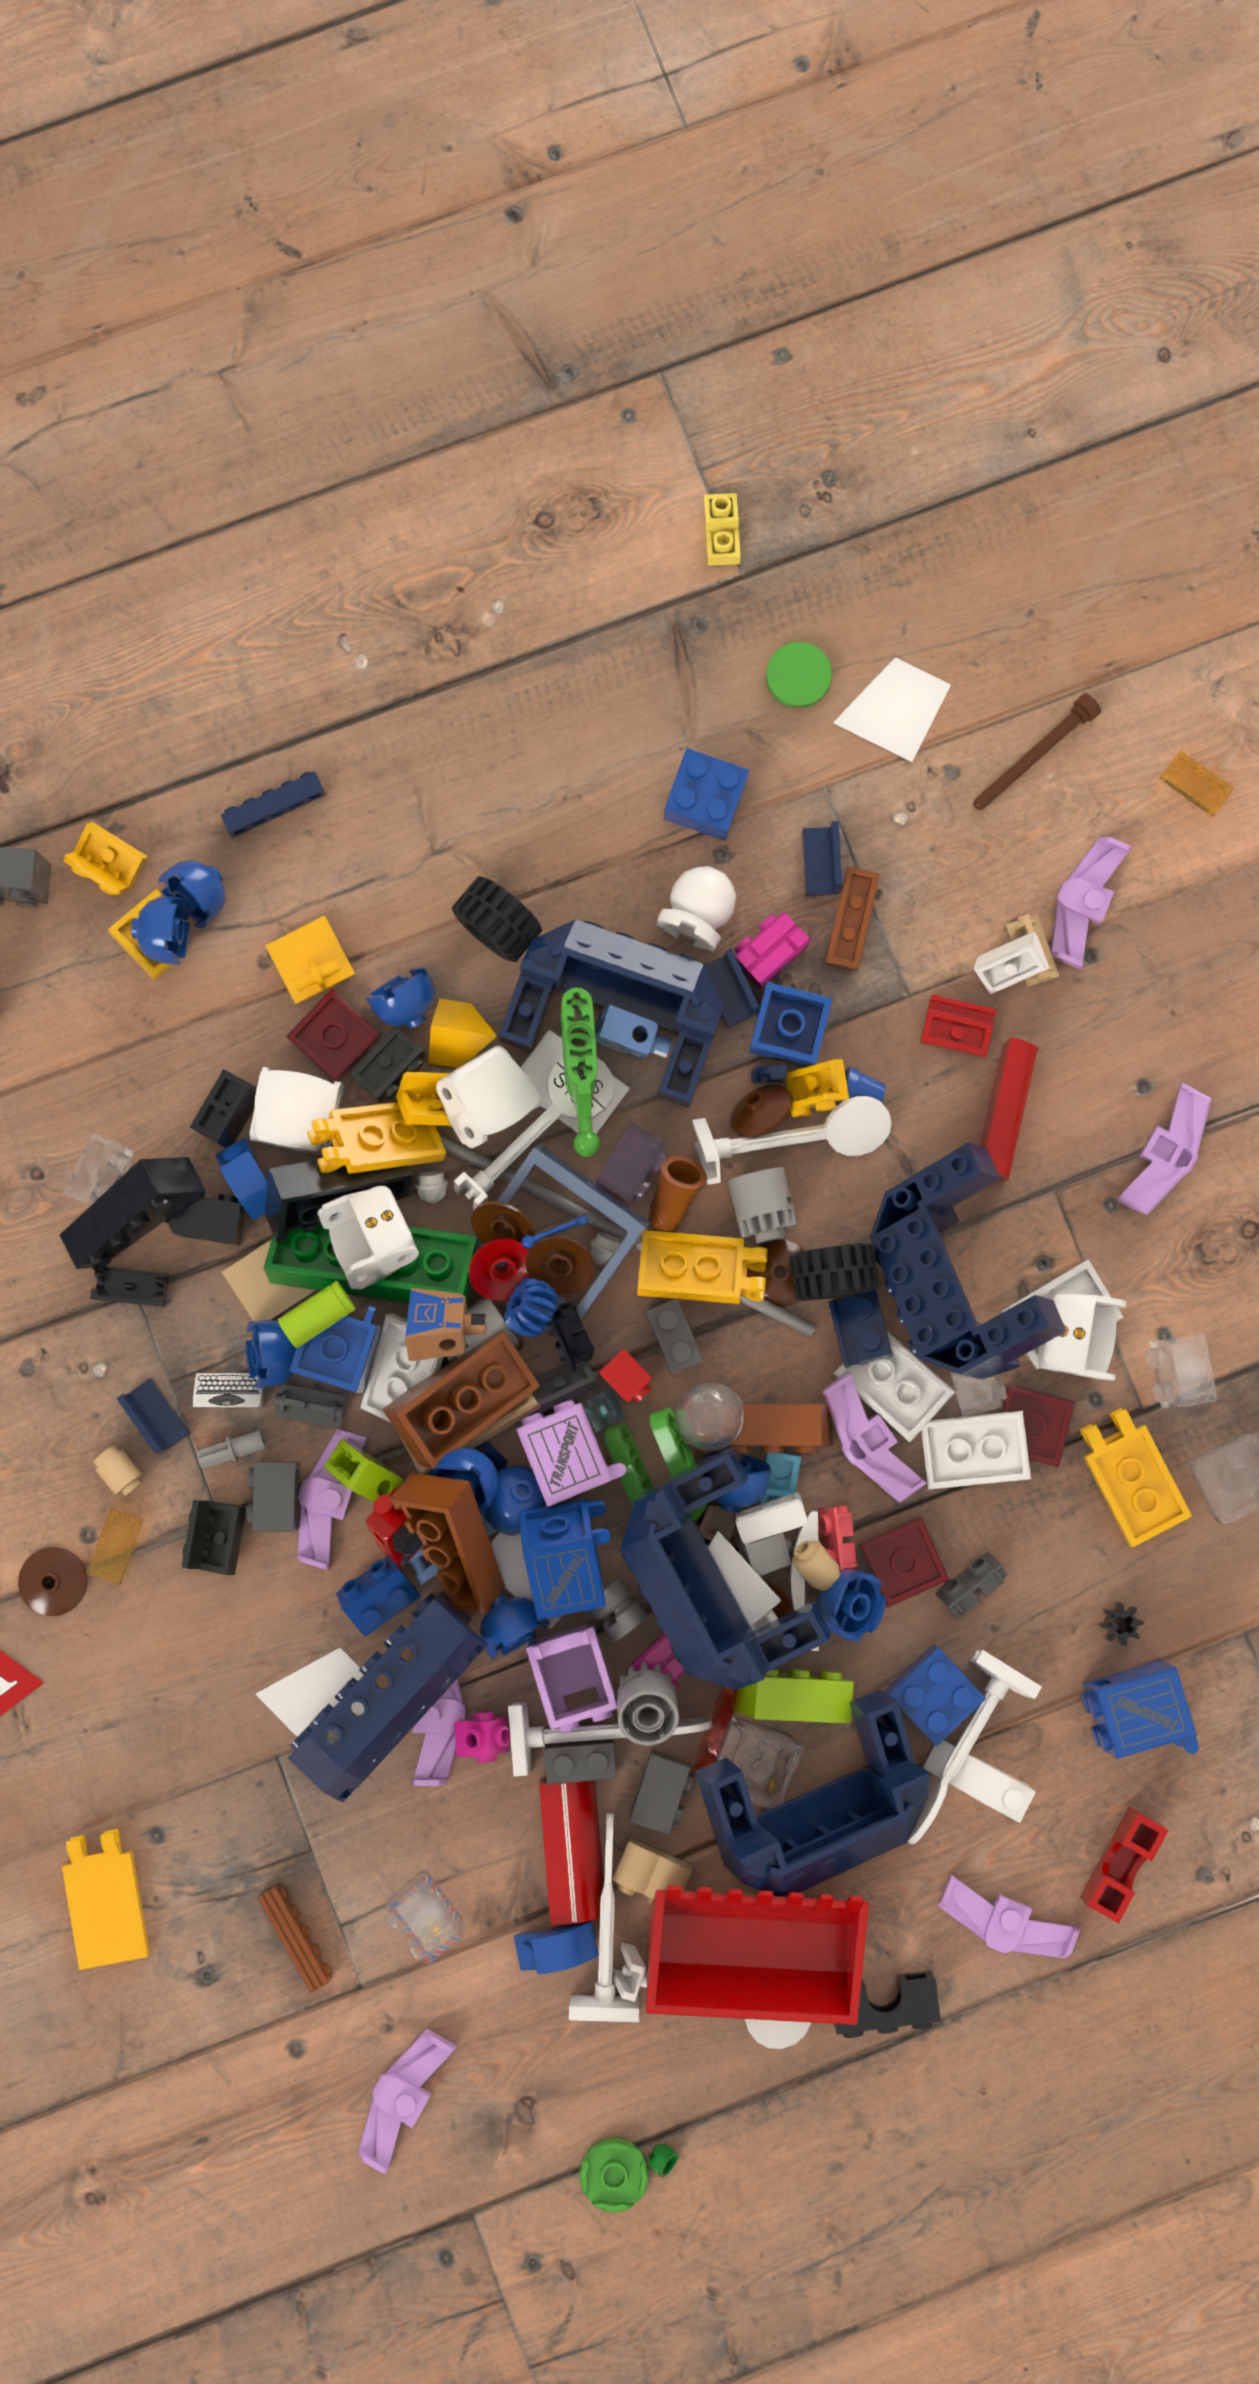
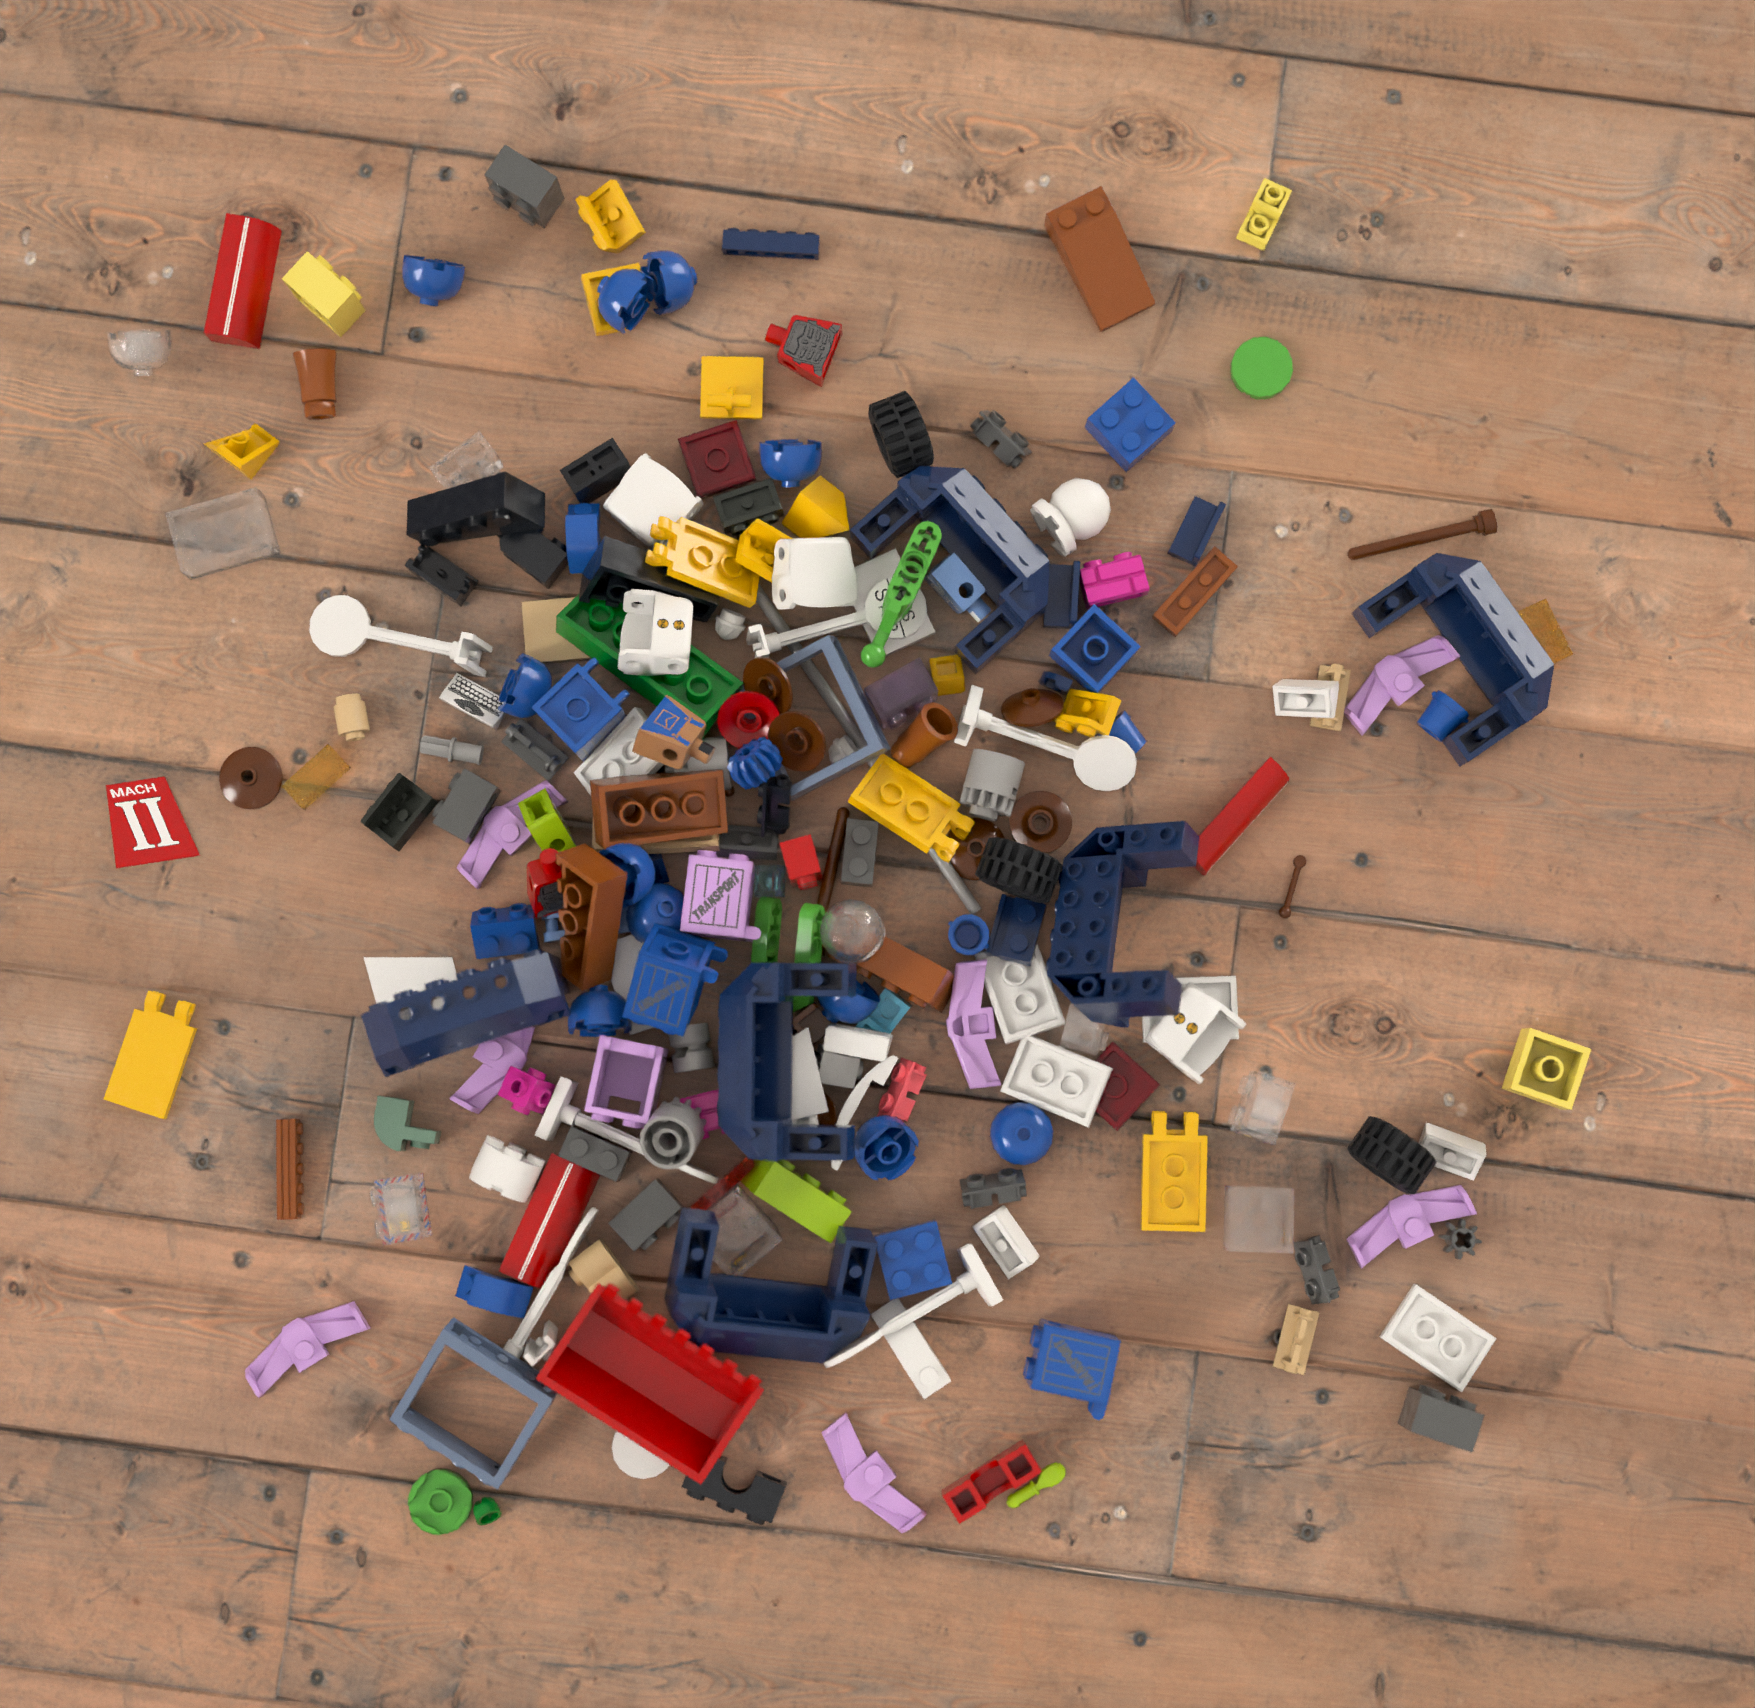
camera: 30 degrees right, 0 degrees up
(62, 1387) = (343, 625): none -> white piece
(154, 1416) = (404, 689): dark blue panel -> none
(316, 1314) = (577, 672): lime pin -> none
(359, 882) = (806, 346): none -> torso
(374, 1841) = (393, 1124): none -> sand green brick
(504, 1824) = (506, 1169): none -> white brick
(528, 1241) = (782, 708): blue hinge -> none
(591, 652) = (1099, 258): none -> dark orange slope
(596, 2015) = (498, 1363): none -> sand blue window
(604, 872) = (993, 429): none -> dark grey hinge
(651, 1357) = (833, 860): none -> reddish brown piece
(663, 1121) = (947, 674): none -> yellow slope
(815, 1565) = (872, 1098): tan brick -> none
(819, 1359) = (968, 934): none -> blue piece
(832, 1197) = (1045, 806): none -> reddish brown dish
(896, 708) = (1327, 439): white sticker -> none
(904, 1561) = (947, 1138): dark red plate -> none
(958, 1026) = (1234, 726): red plate -> none
(970, 1518) = (1021, 1133): none -> blue cylinder
(1011, 1628) = (1006, 1241): none -> white slope
(1087, 1120) = (1299, 862): none -> reddish brown hinge
(1131, 1622) = (1105, 1289): black gear -> none
(1146, 911) = (1442, 716): none -> blue piece
(1150, 816) = (1485, 633): none -> dark blue wedge
(1169, 1152) = (1352, 924): lavender plate -> none
(1176, 1824) = (1051, 1475): none -> lime piece

